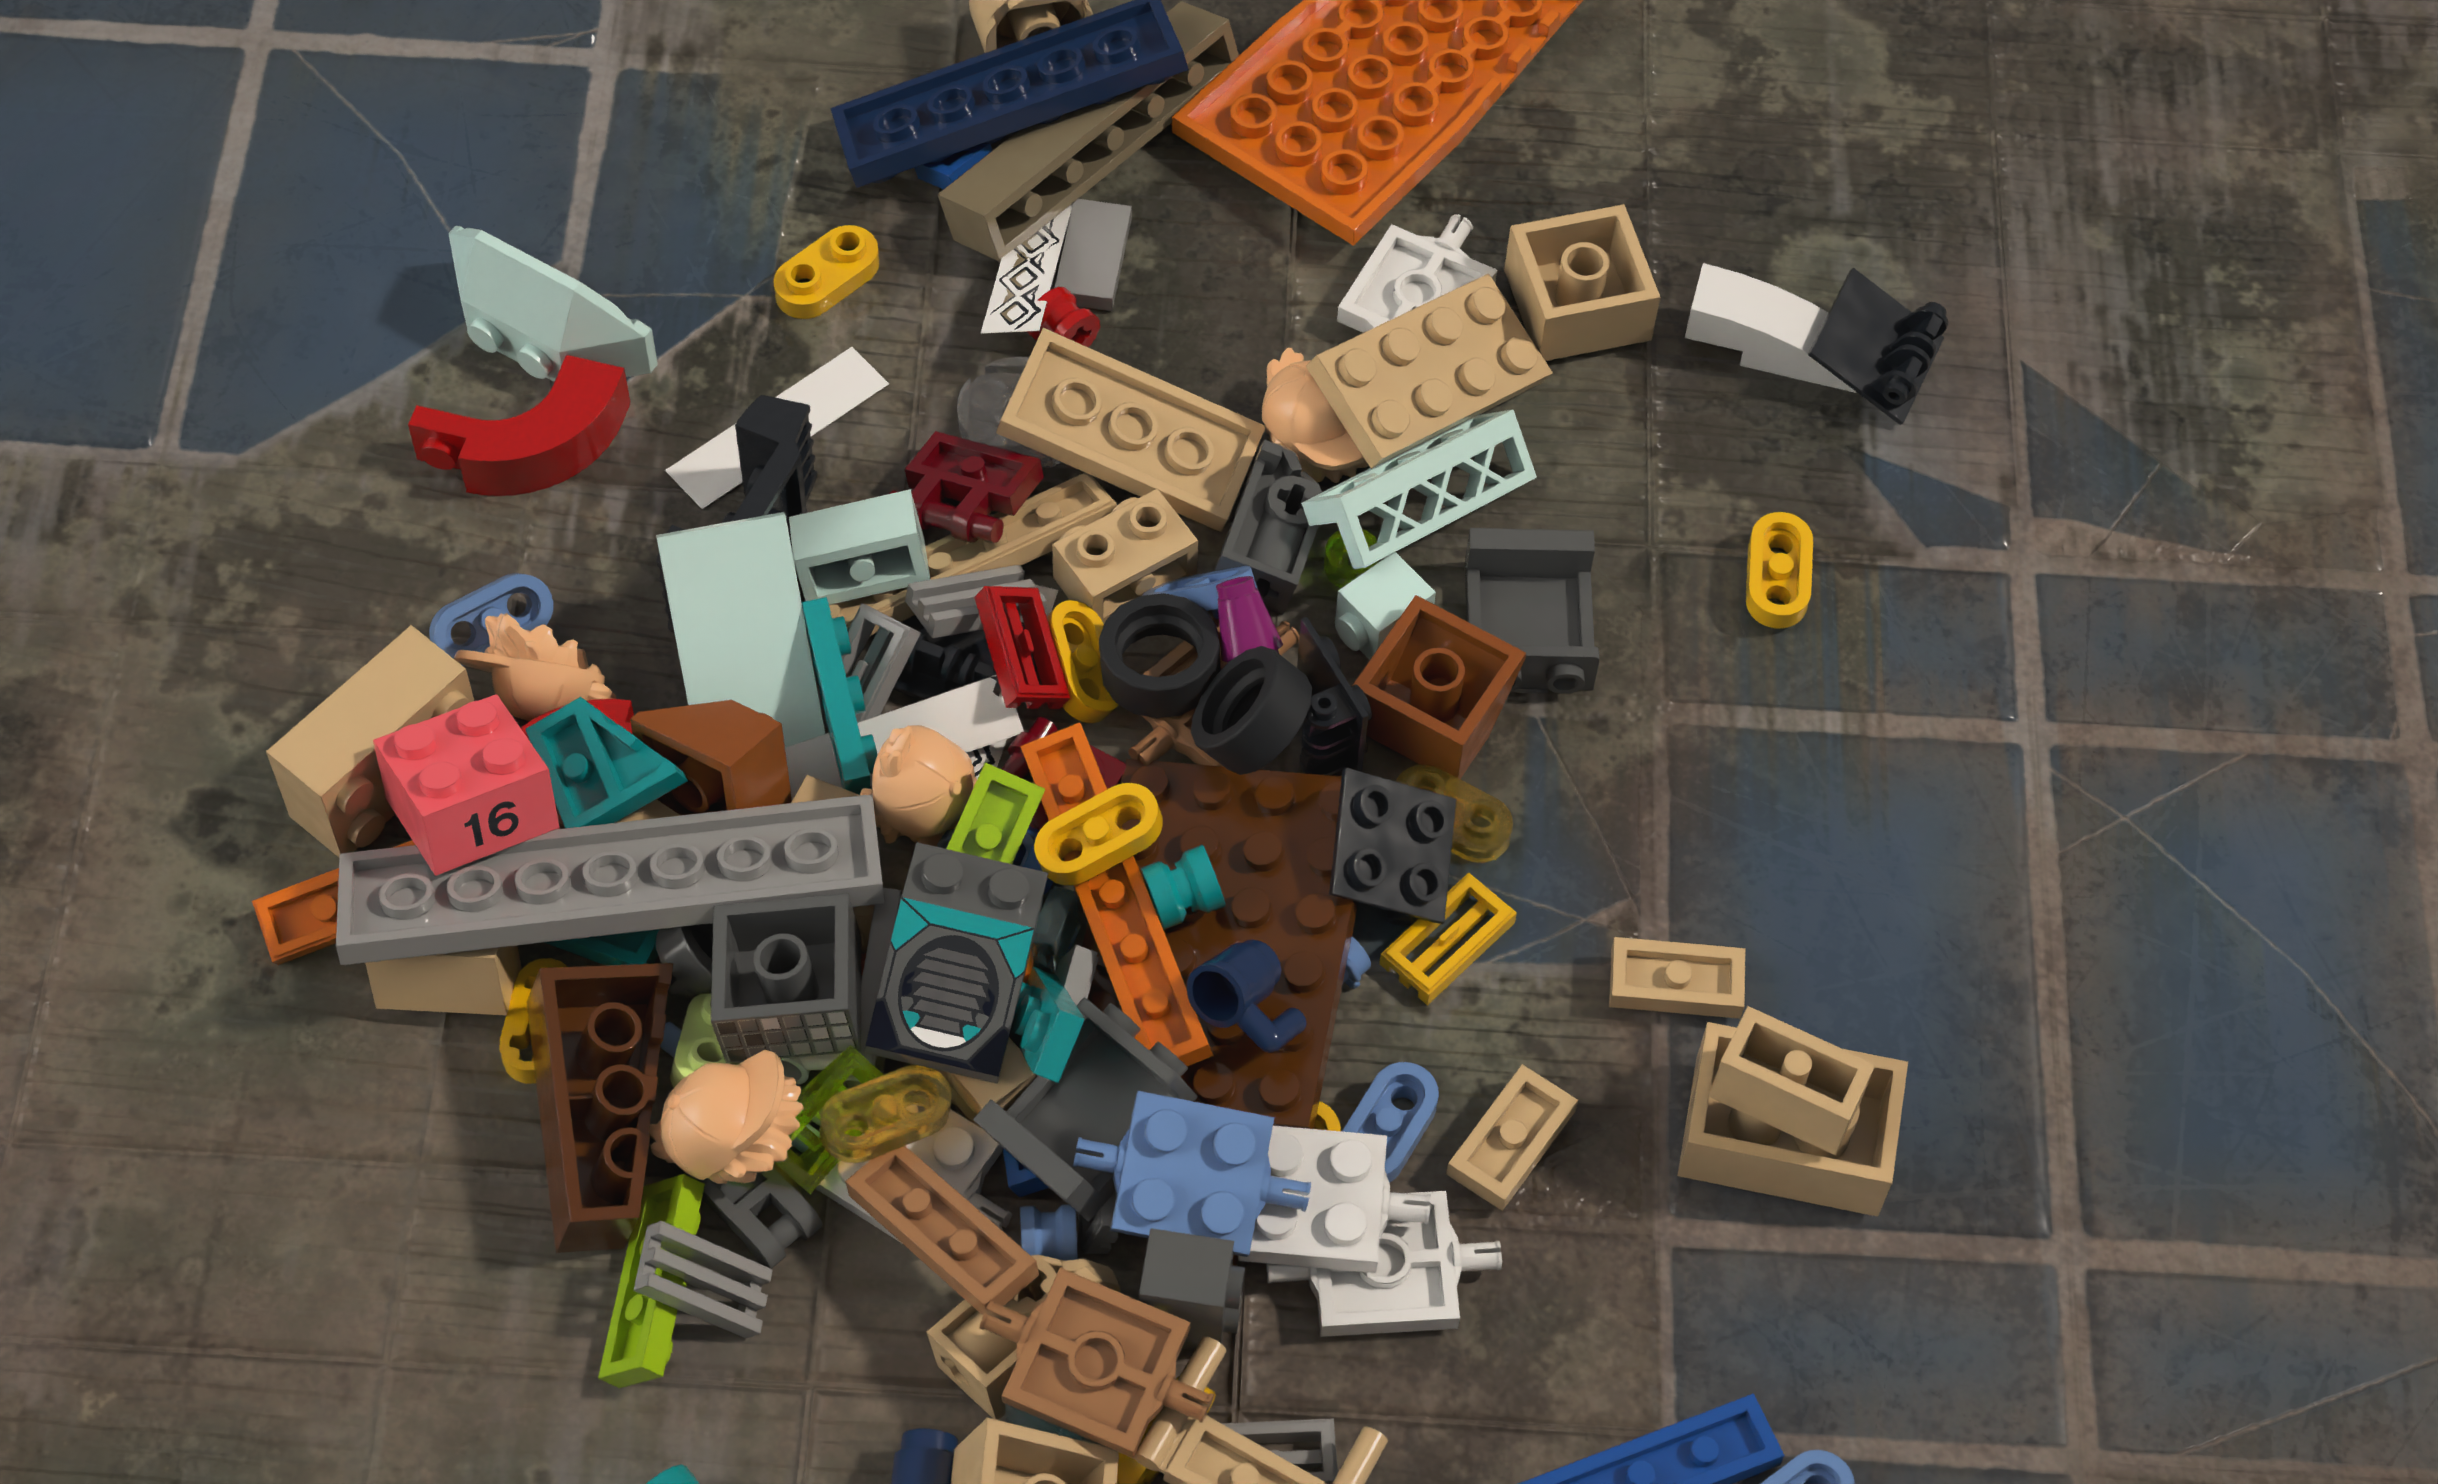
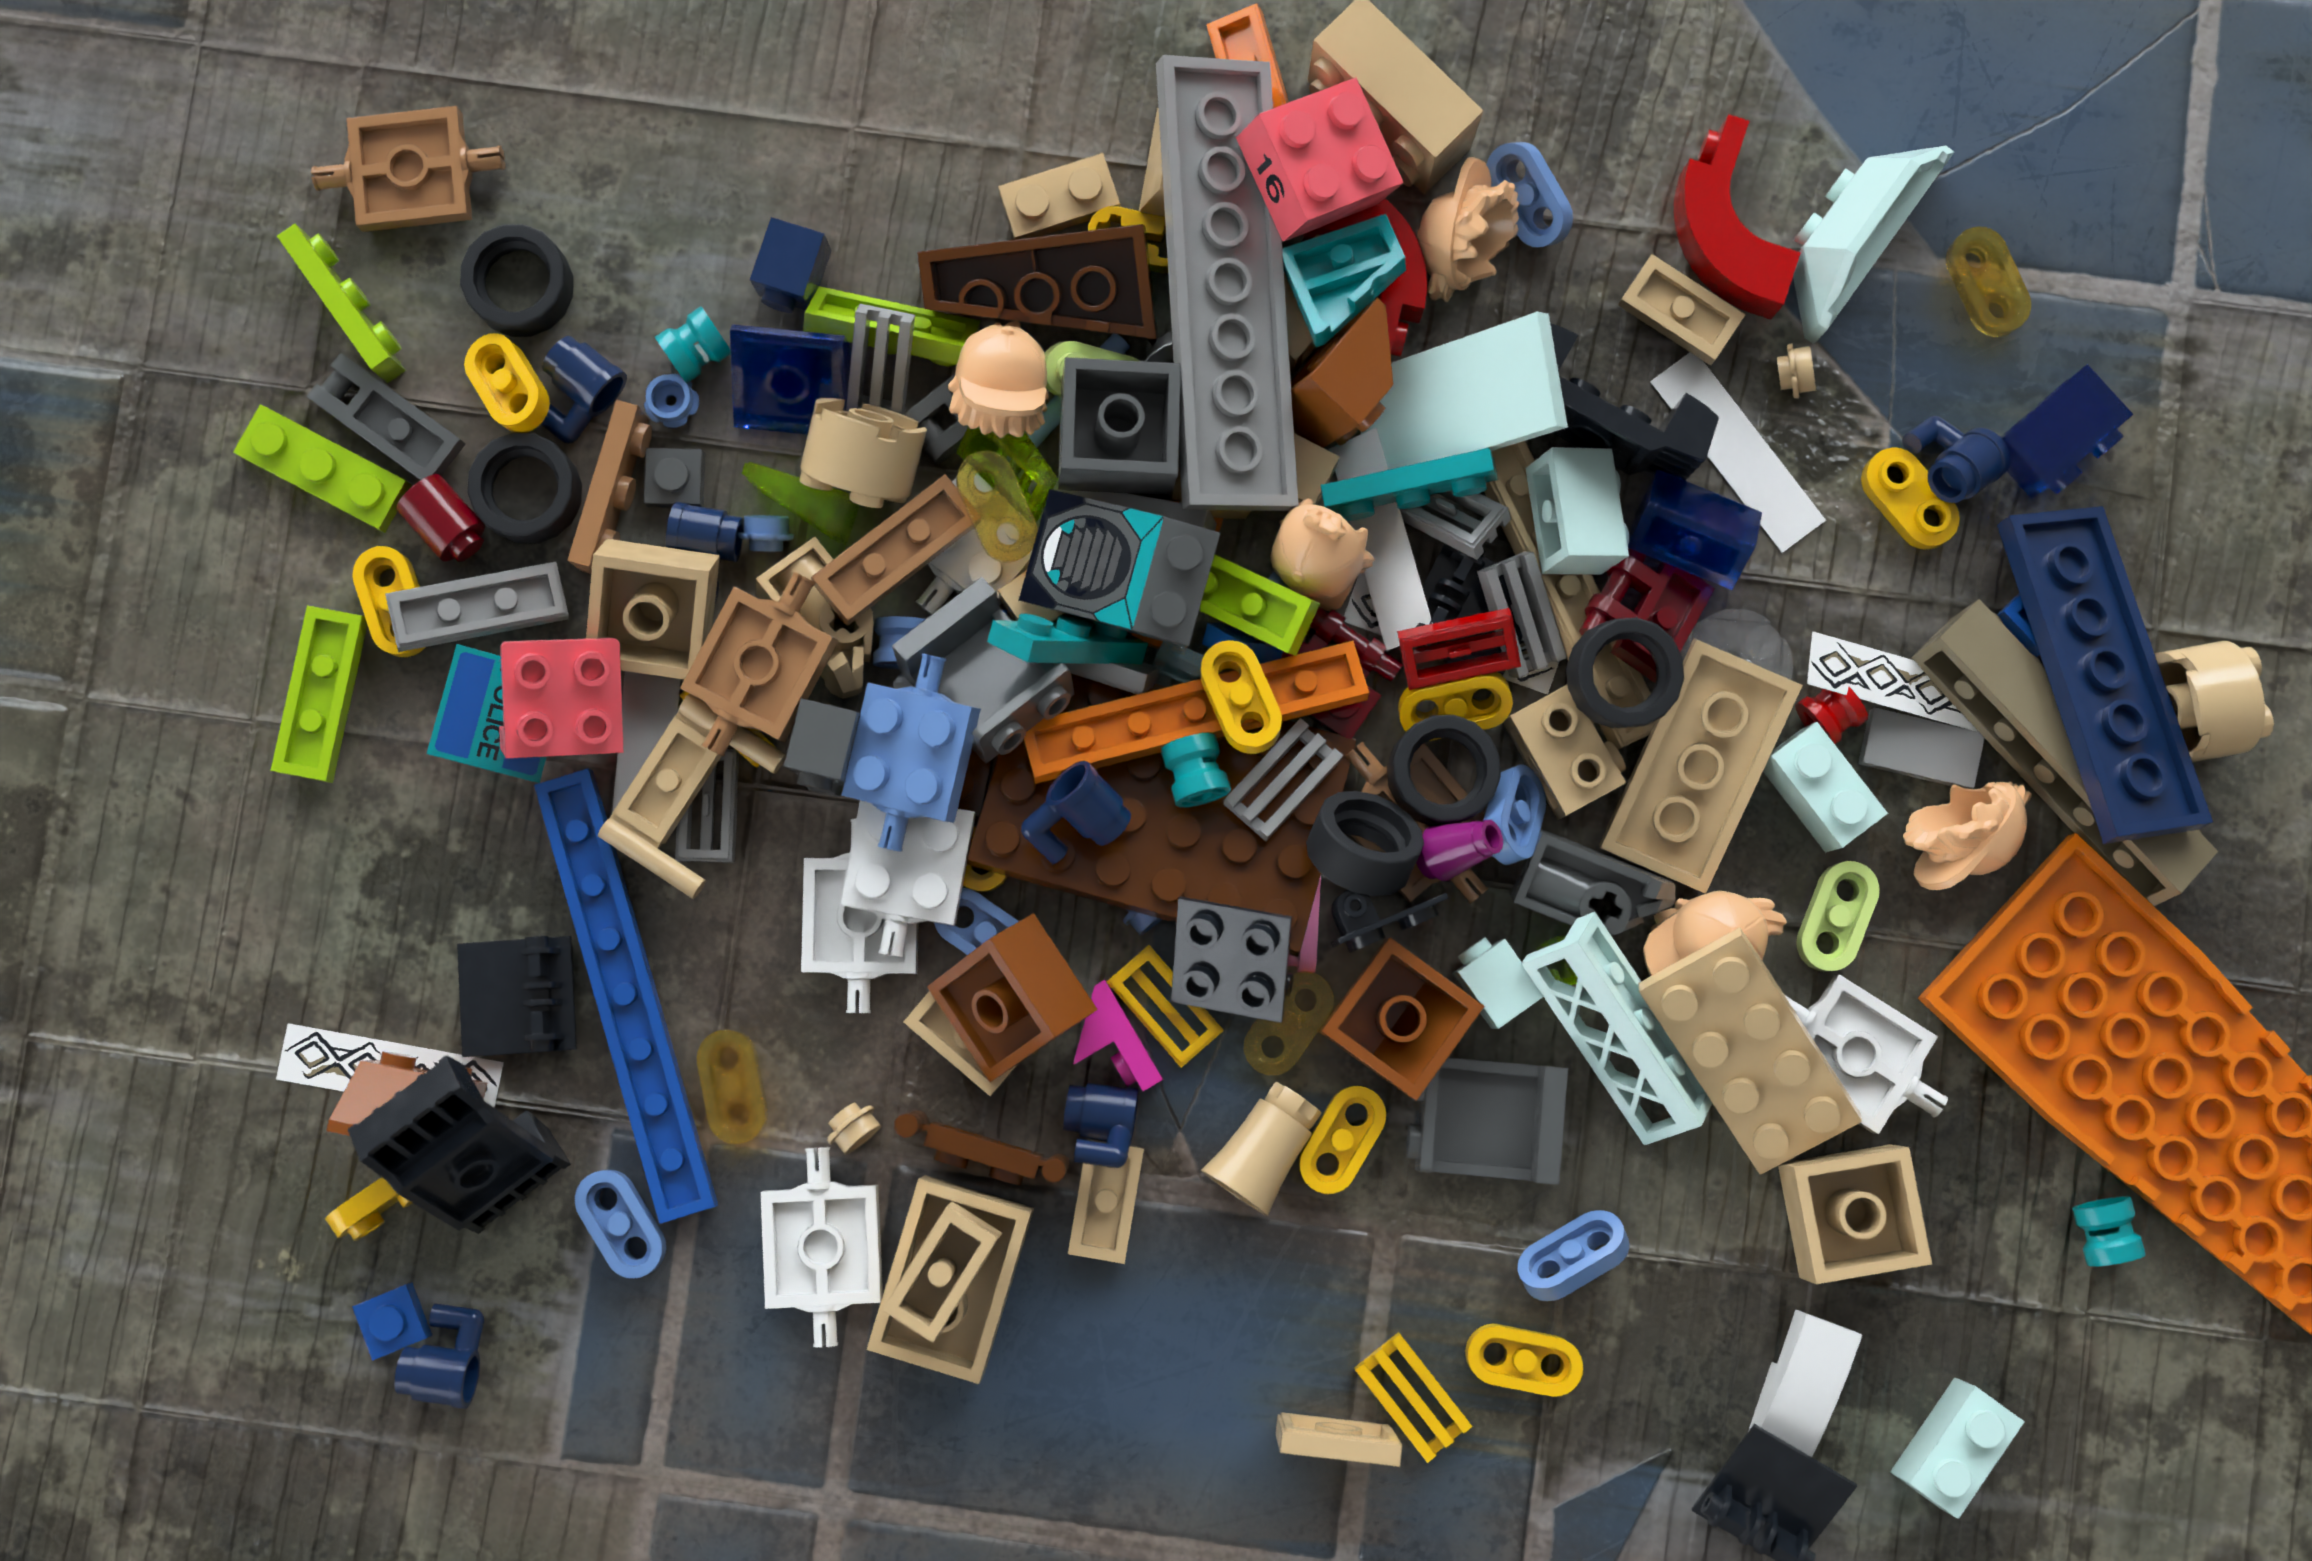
camera: 100 degrees right, 25 degrees up
(485, 1112) = (1058, 197): none -> tan plate
(577, 1398) = (789, 265): none -> dark blue brick
(591, 208) = (1992, 282): none -> clear yellow plate
(623, 474) = (1681, 309): none -> tan plate
(690, 368) = (1796, 370): none -> tan plate
(725, 1393) = (783, 374): none -> clear blue slope
(754, 142) = (2062, 430): none -> clear blue brick
(789, 211) = (1966, 464): none -> dark blue piece
(819, 1281) = (862, 452): none -> tan brick
(874, 439) = (1695, 529): none -> clear blue brick
(884, 1346) = (823, 509): none -> clear neon green slope
(917, 1407) = (766, 532): none -> medium blue plate
(1042, 446) = (1668, 673): none -> black tyre
(1150, 319) = (1822, 788): none -> light aqua brick
(1182, 203) = (1969, 834): none -> light nougat hair
(1202, 793) = (1314, 745): none -> light grey tile
(1278, 315) = (1840, 919): none -> yellowish green plate
(1465, 1068) = (1011, 997): none -> dark orange slope
(1485, 981) = (1111, 1025): none -> dark pink slope
(1564, 87) = (2109, 1231): none -> teal wheel
(1575, 748) = (1346, 1141): none -> yellow plate
(1582, 978) = (1103, 1115): none -> dark blue piece
(1596, 818) = (1264, 1148): none -> tan plant
(1602, 1391) = (727, 1087): none -> clear yellow plate
(1635, 1252) = (853, 1127): none -> tan plate
(1649, 1079) = (959, 1146): none -> reddish brown plate
(1666, 531) = (1572, 1255): none -> medium blue plate
(1779, 1276) = (821, 1246): none -> white plate
(1797, 198) = (1957, 1447): none -> light aqua brick
(1867, 644) = (1444, 1436): none -> yellow tile
(1897, 719) = (1338, 1439): none -> tan tile

